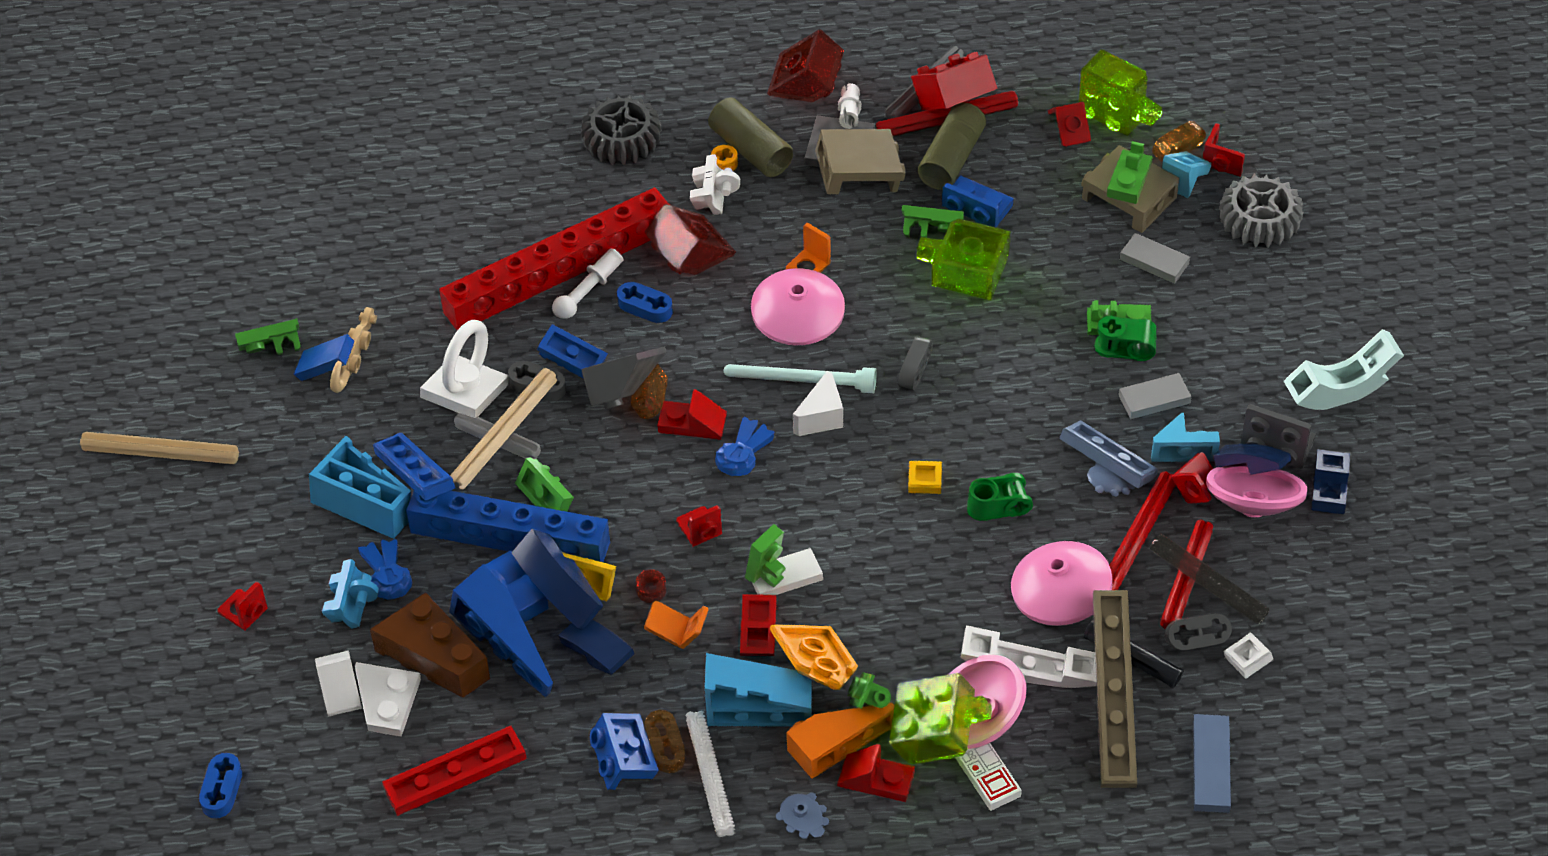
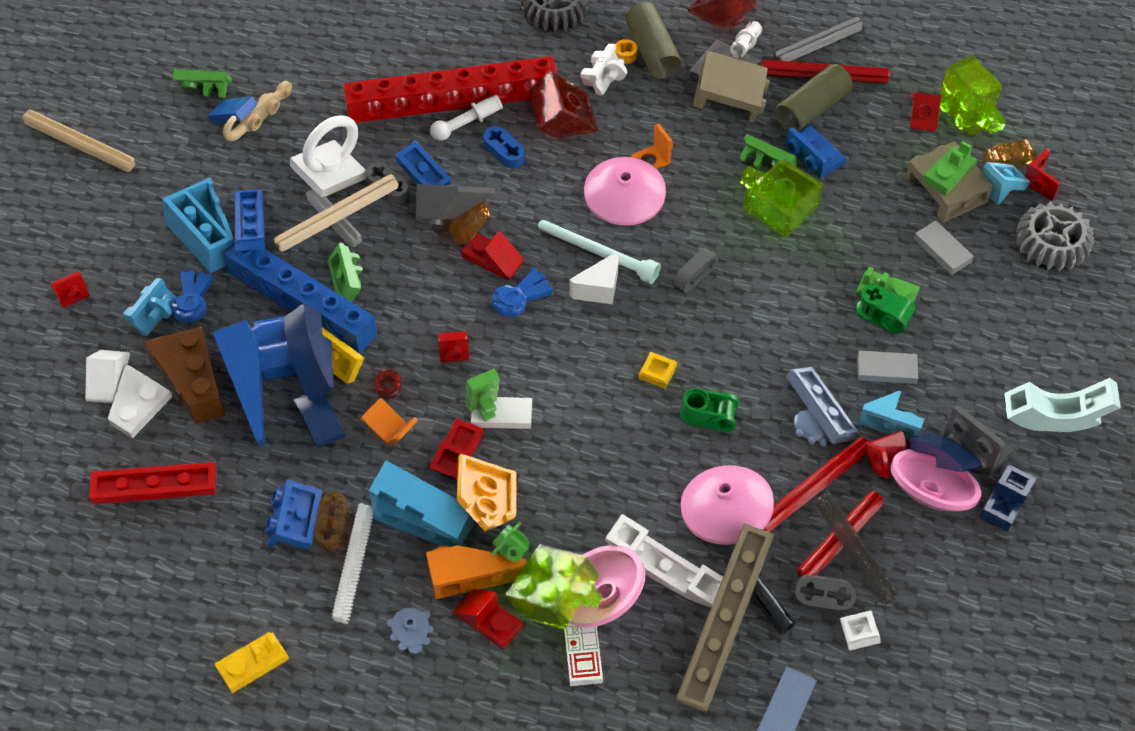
camera: 20 degrees right, 5 degrees up
(953, 81) = (838, 45): red container -> none

